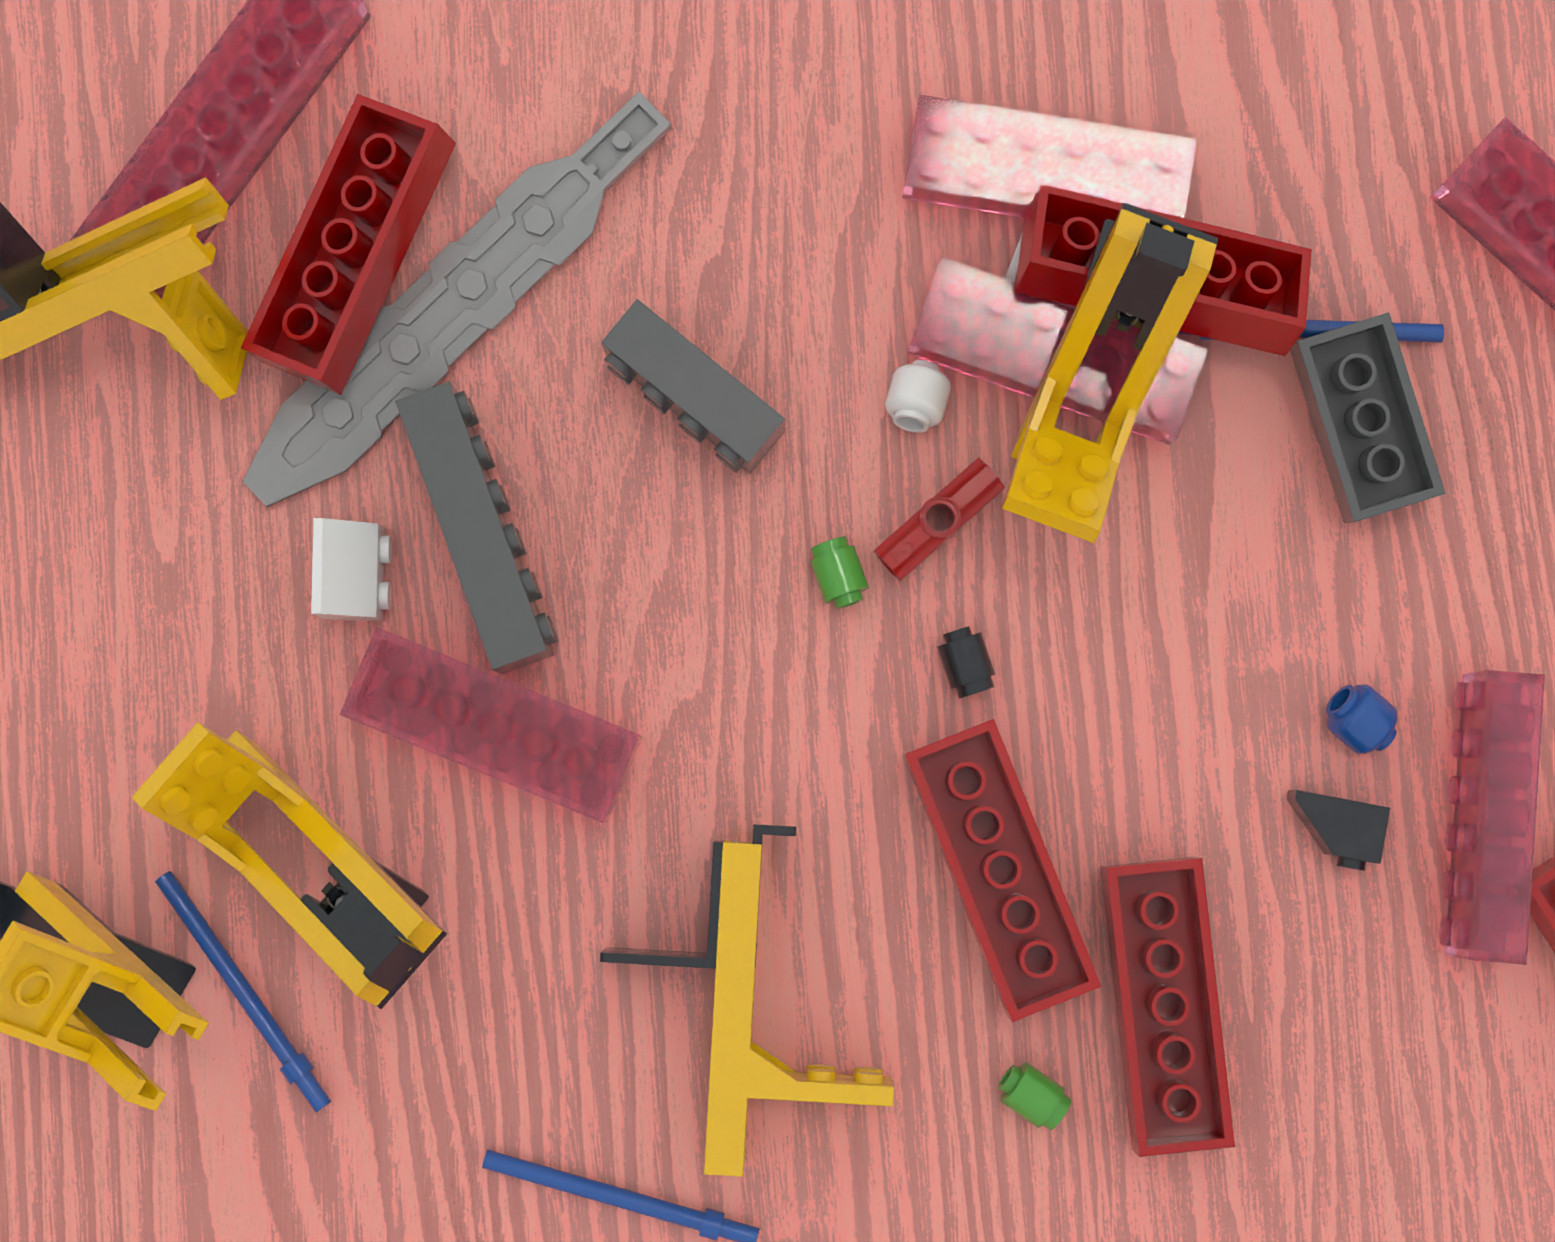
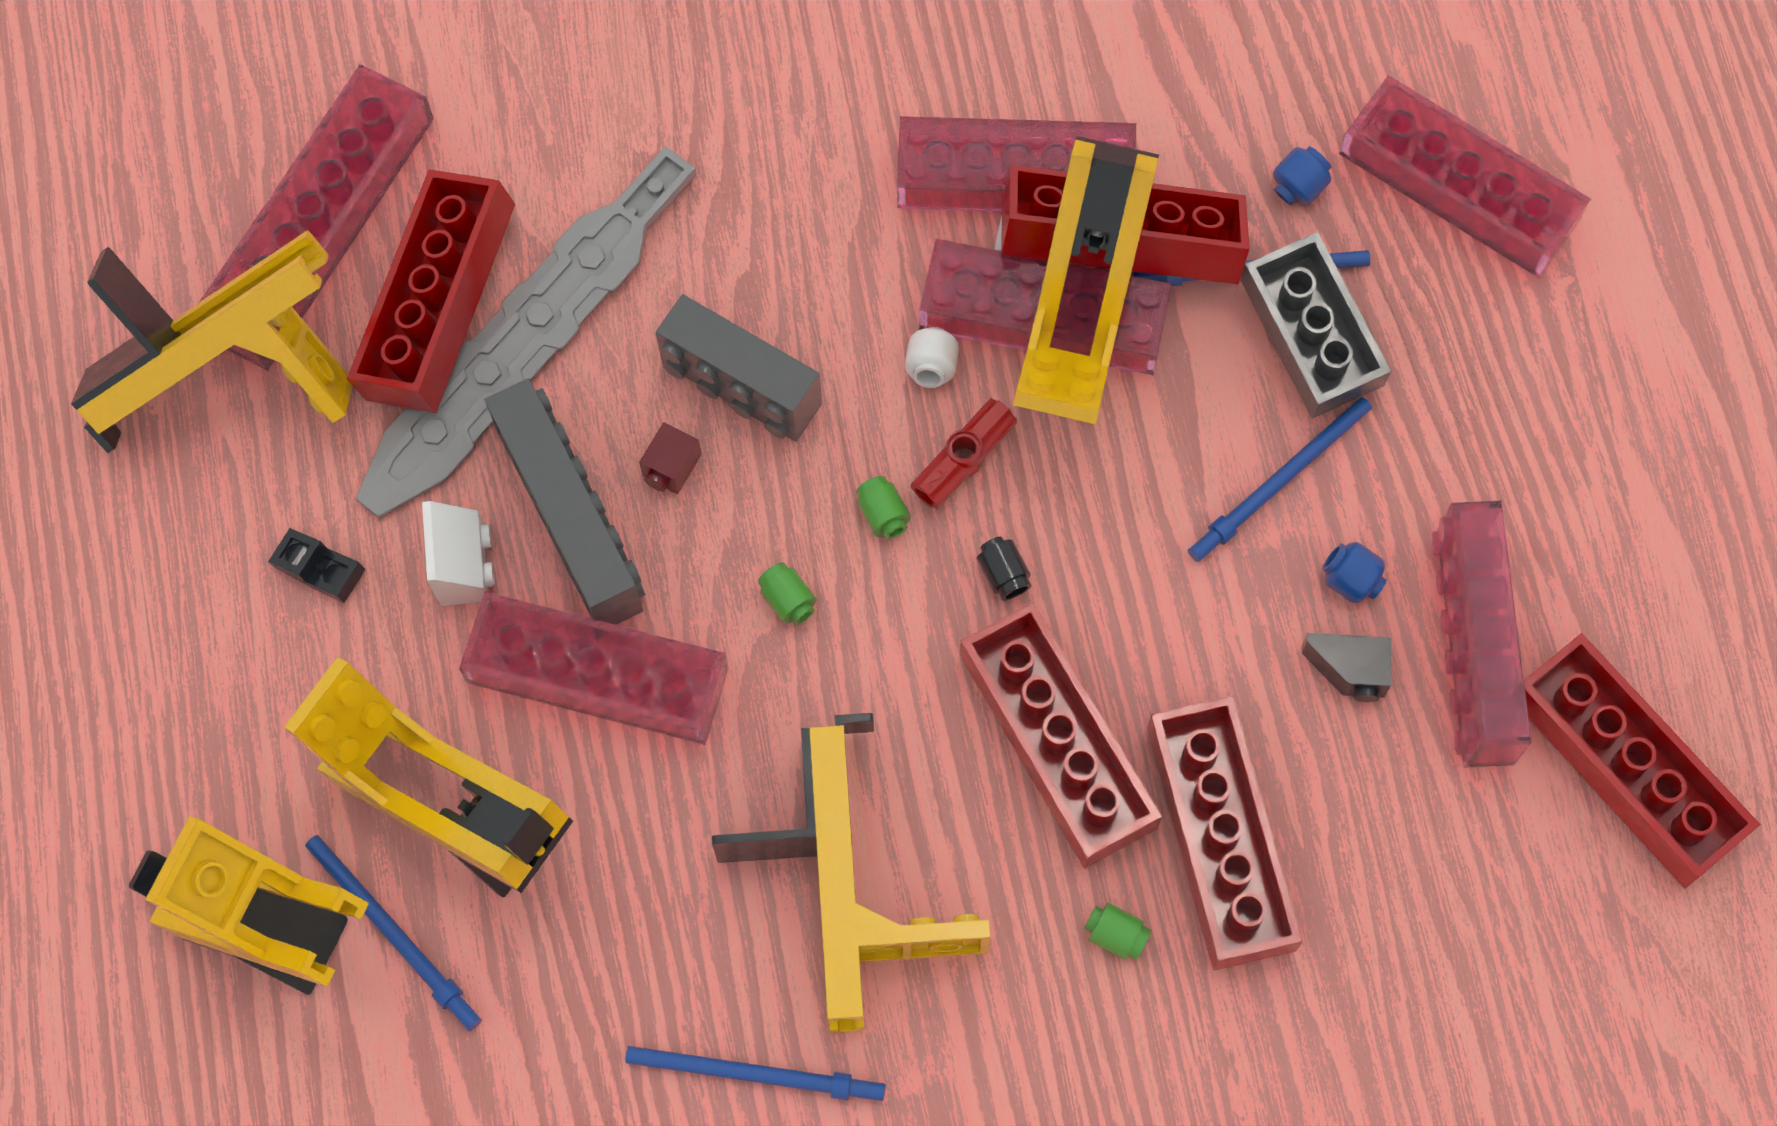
camera: 10 degrees left, 15 degrees down
(192, 556) = (316, 565): none -> black slope
(602, 483) = (669, 459): none -> dark red brick
(718, 662) = (787, 594): none -> bright green brick
(1222, 644) = (1225, 527): none -> blue bar
(1381, 224) = (1302, 176): none -> blue head

